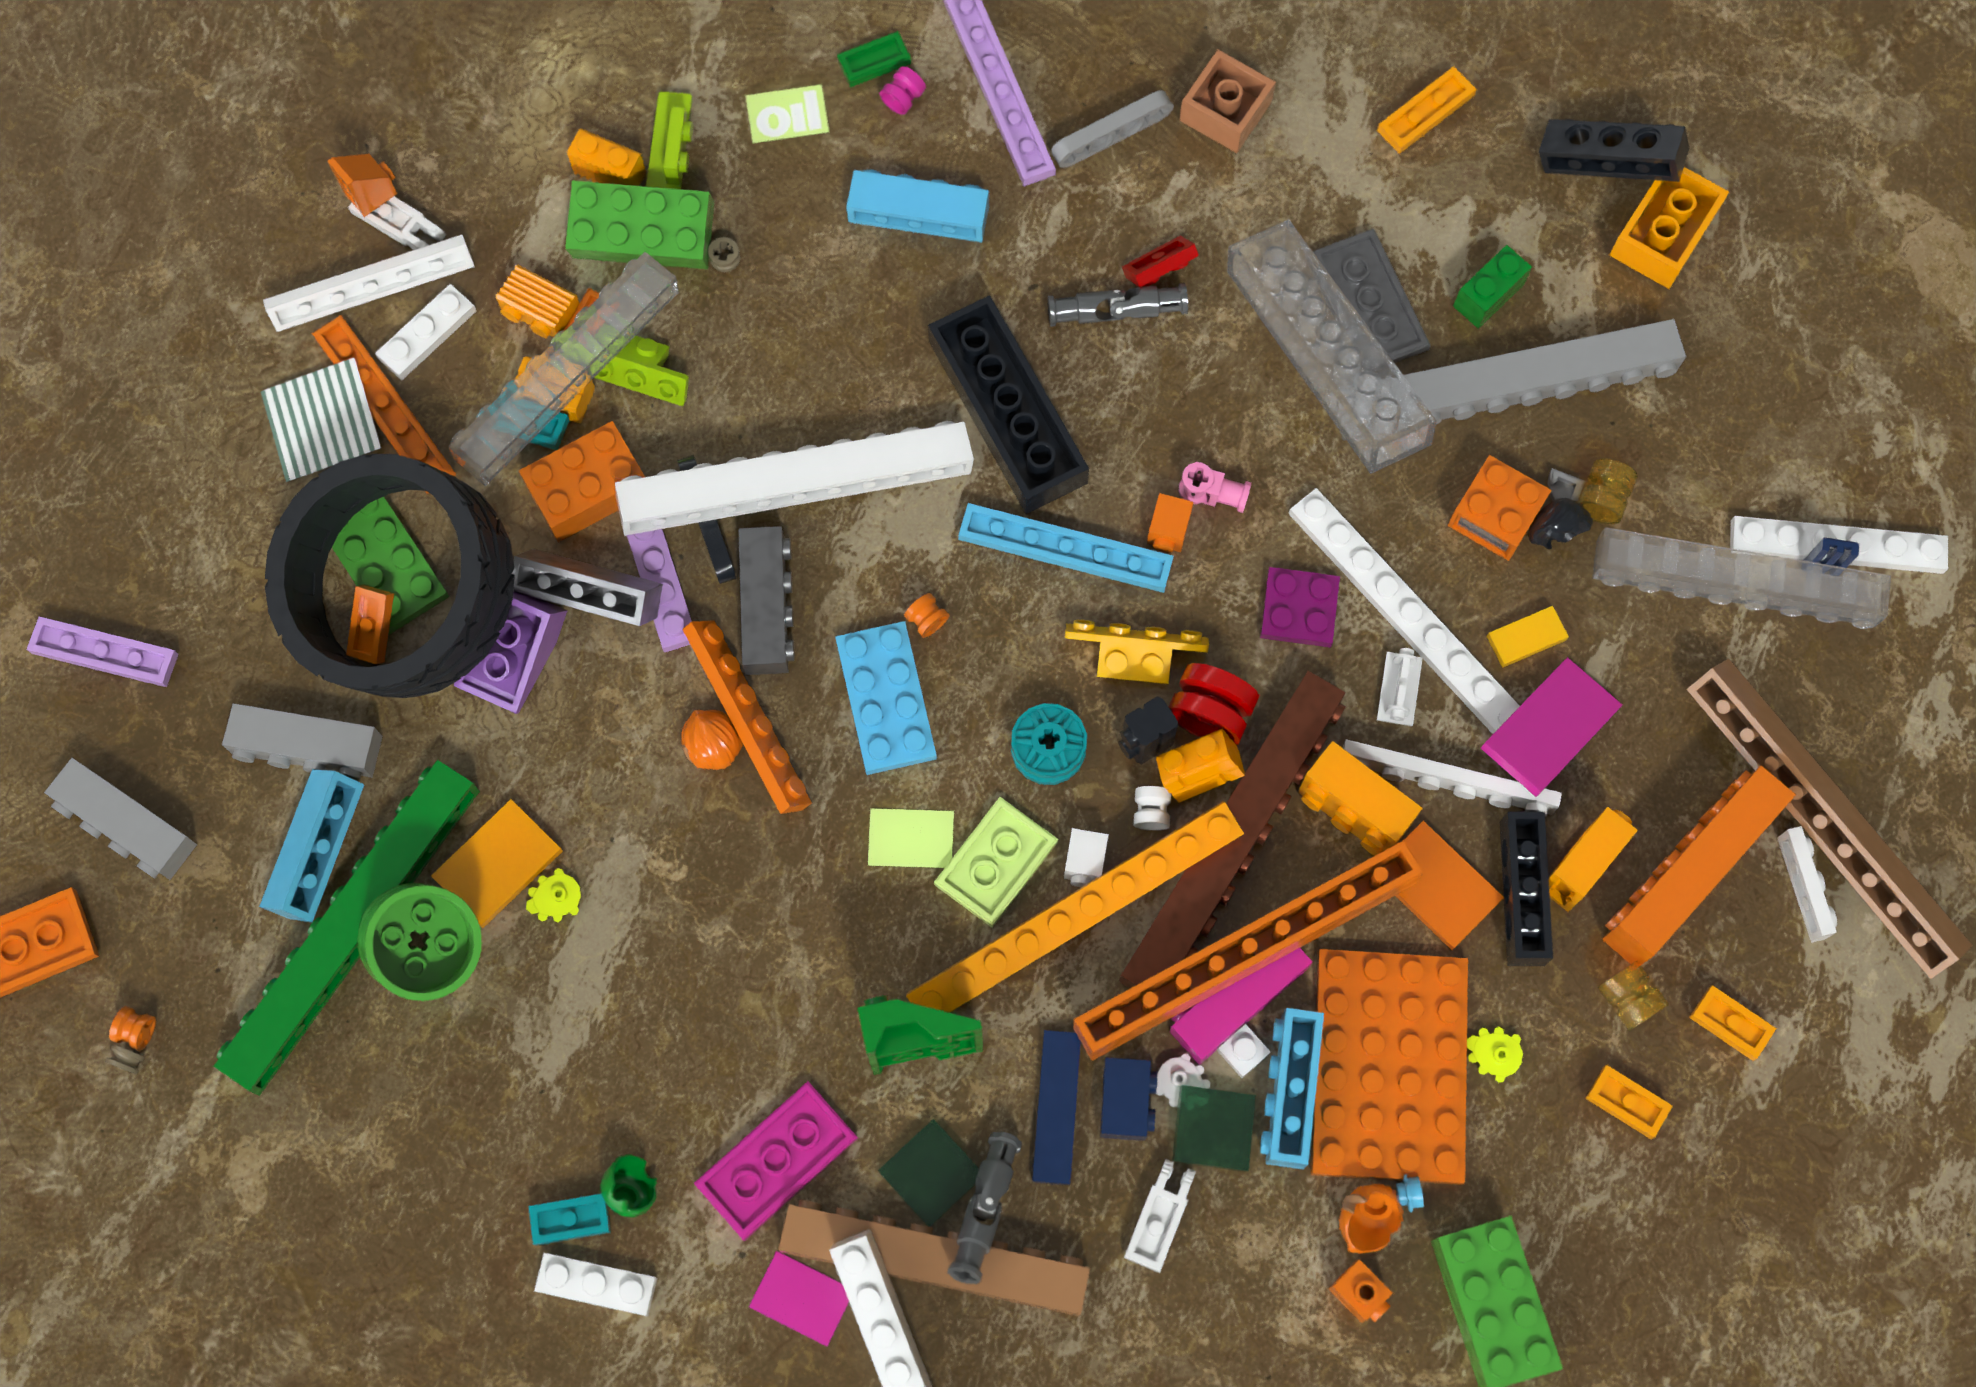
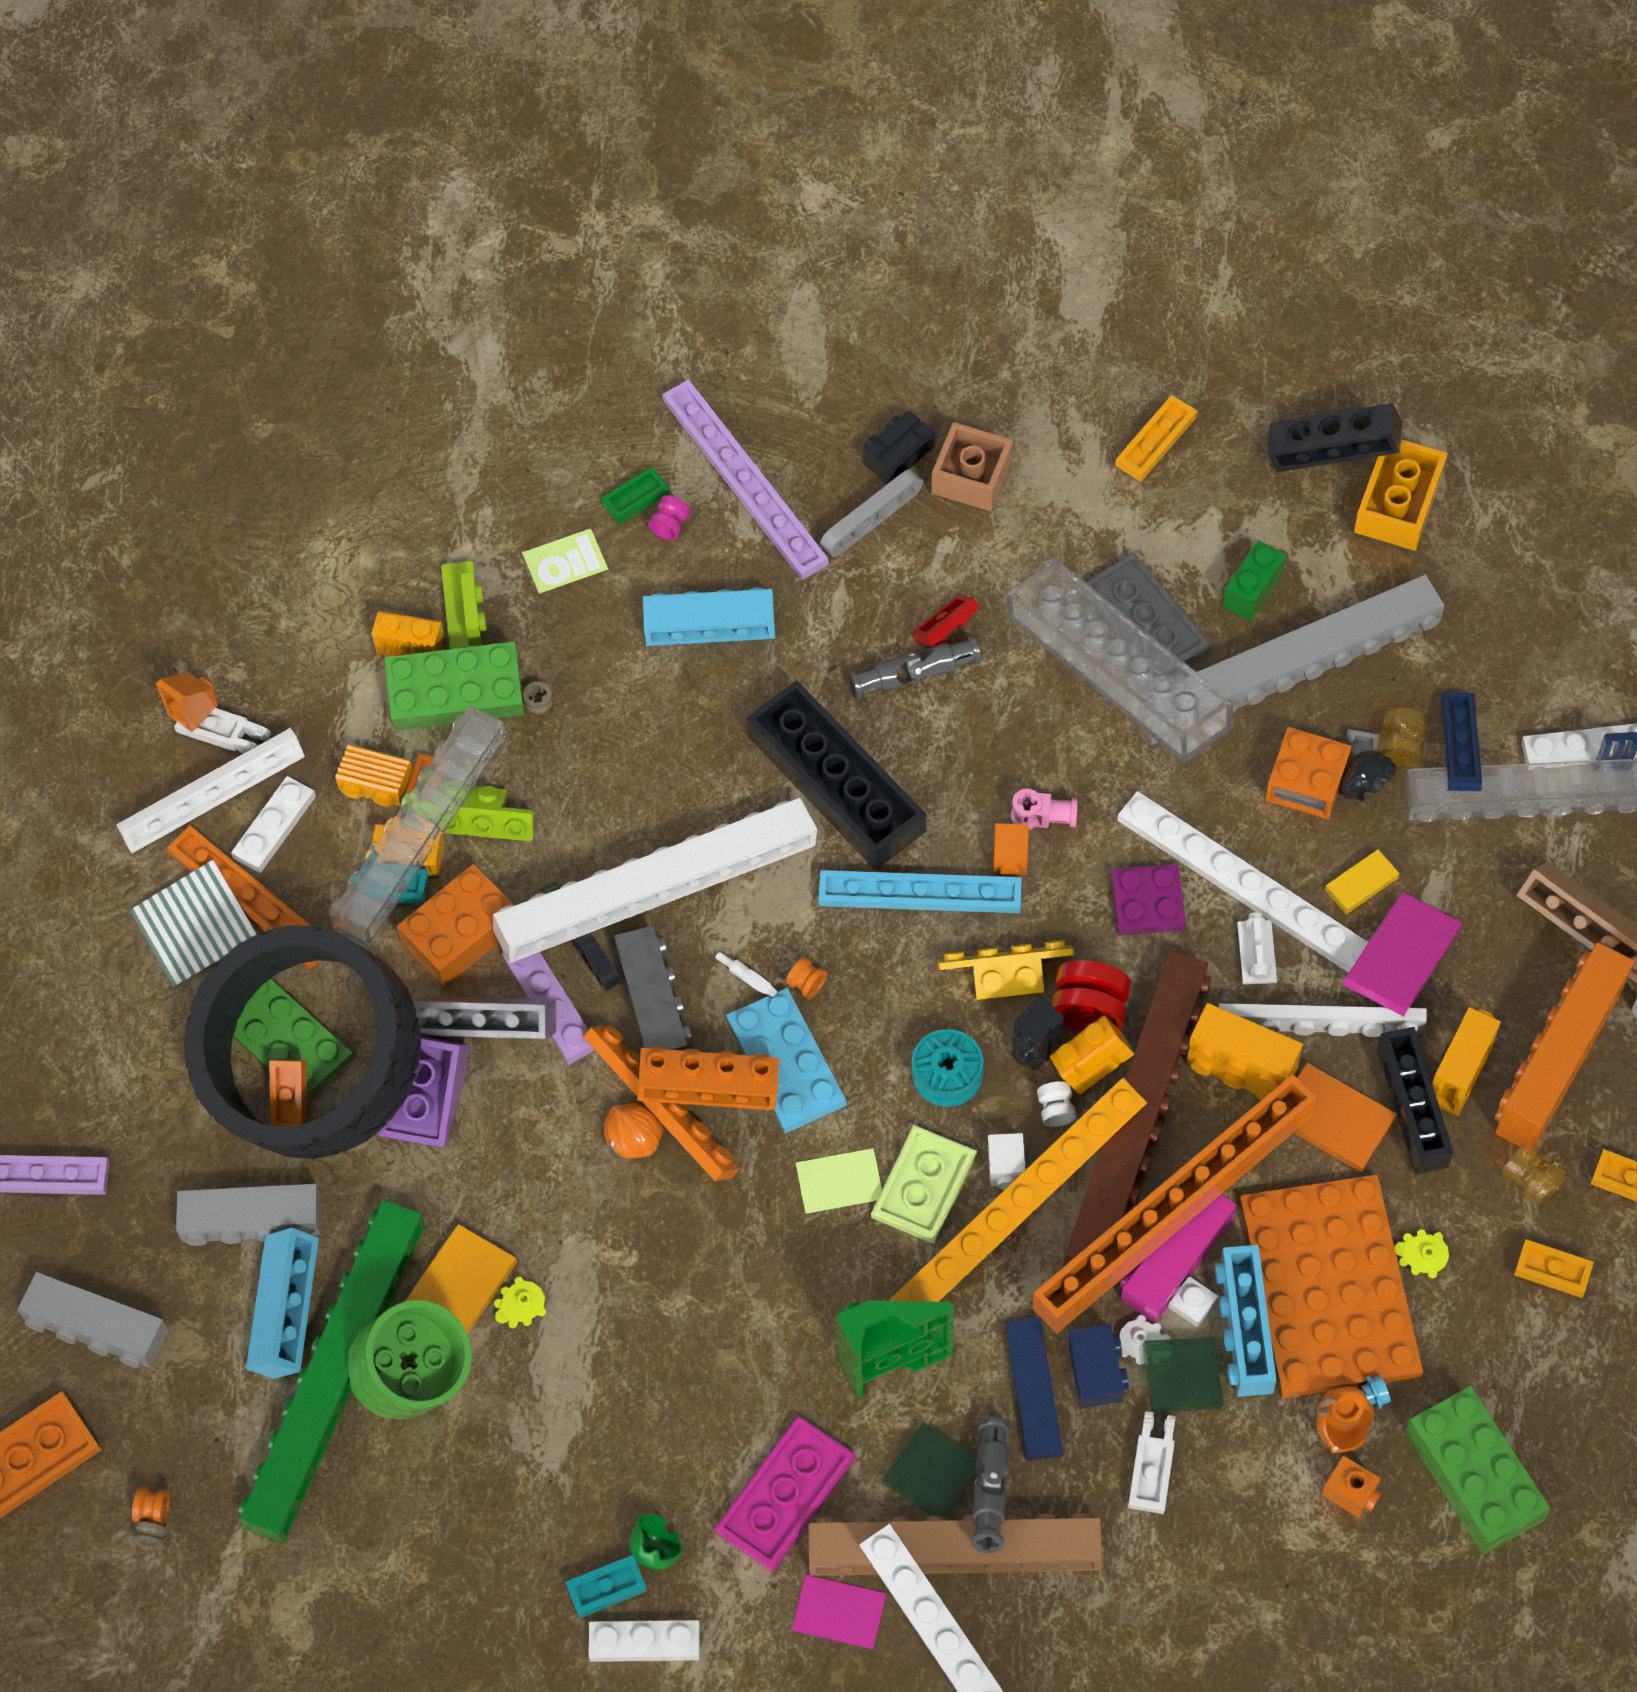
camera: 10 degrees left, 10 degrees down
(796, 704) = (708, 1078): none -> orange brick
(867, 598) = (747, 975): none -> white hand
(1156, 63) = (898, 447): none -> black brick
(1667, 509) = (1461, 742): none -> dark blue tile

